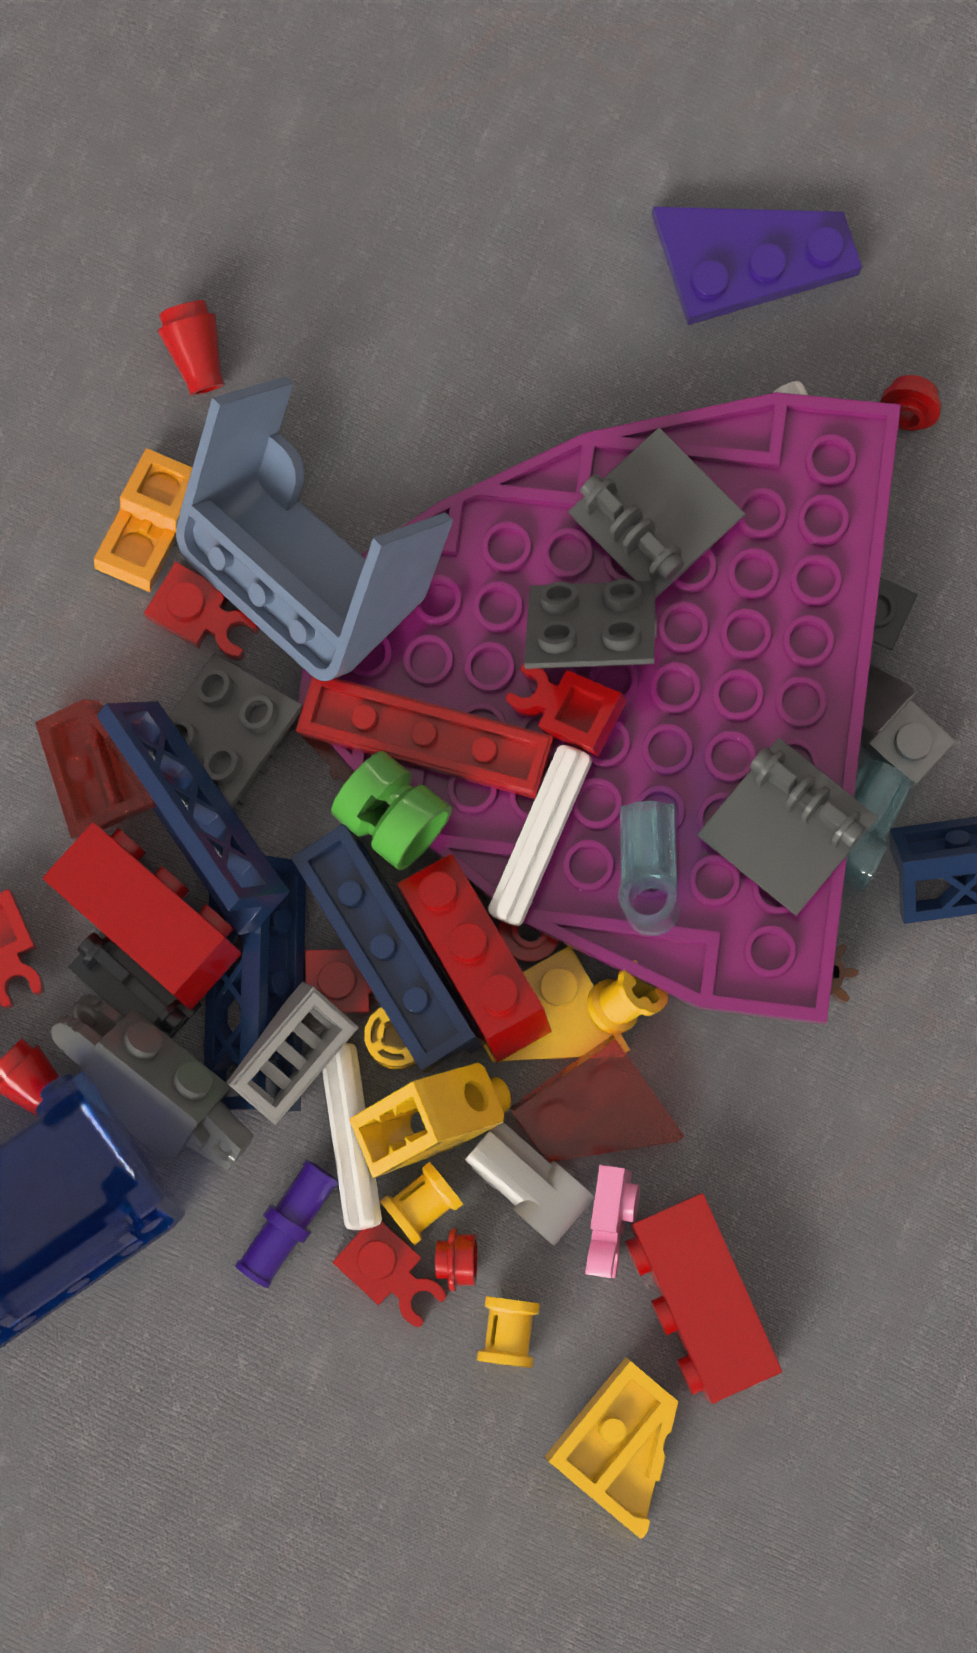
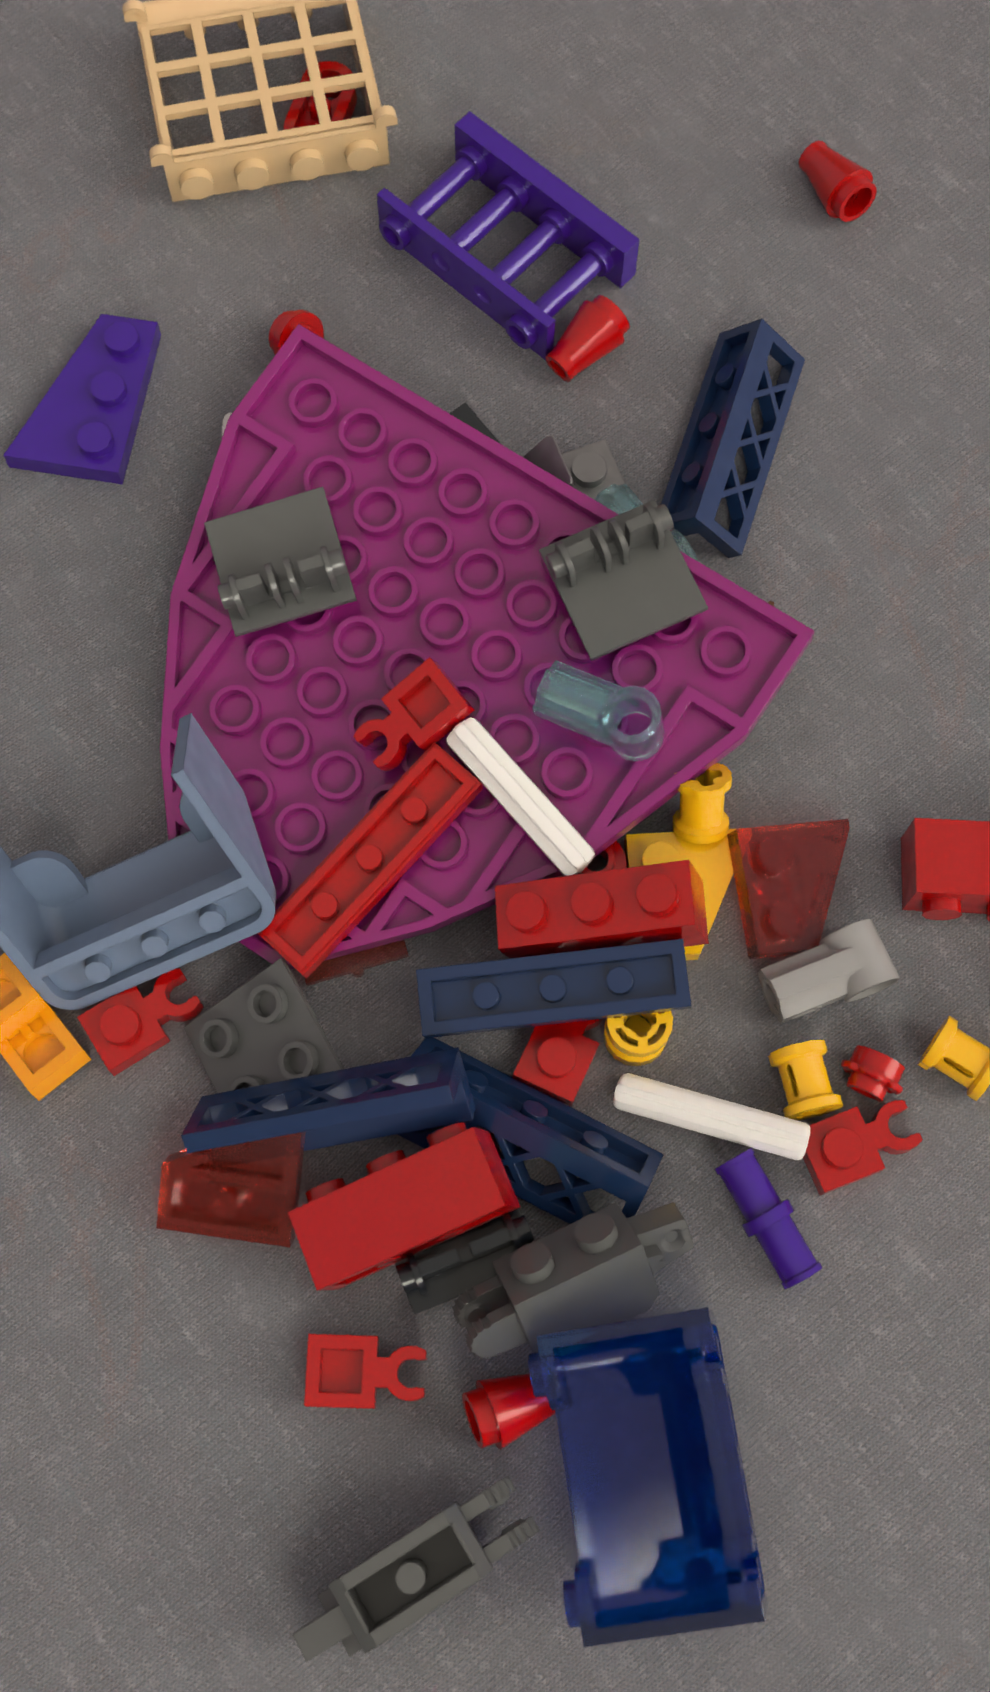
camera: 60 degrees left, 10 degrees down
(323, 1048) = (620, 1098): light grey slope -> none
(405, 827) = (449, 905): bright green wheel -> none
(452, 1107) = (740, 1002): yellow torso -> none
(591, 624) = (353, 652): dark grey hinge -> none
(613, 1205) = (888, 908): bright pink plate -> none

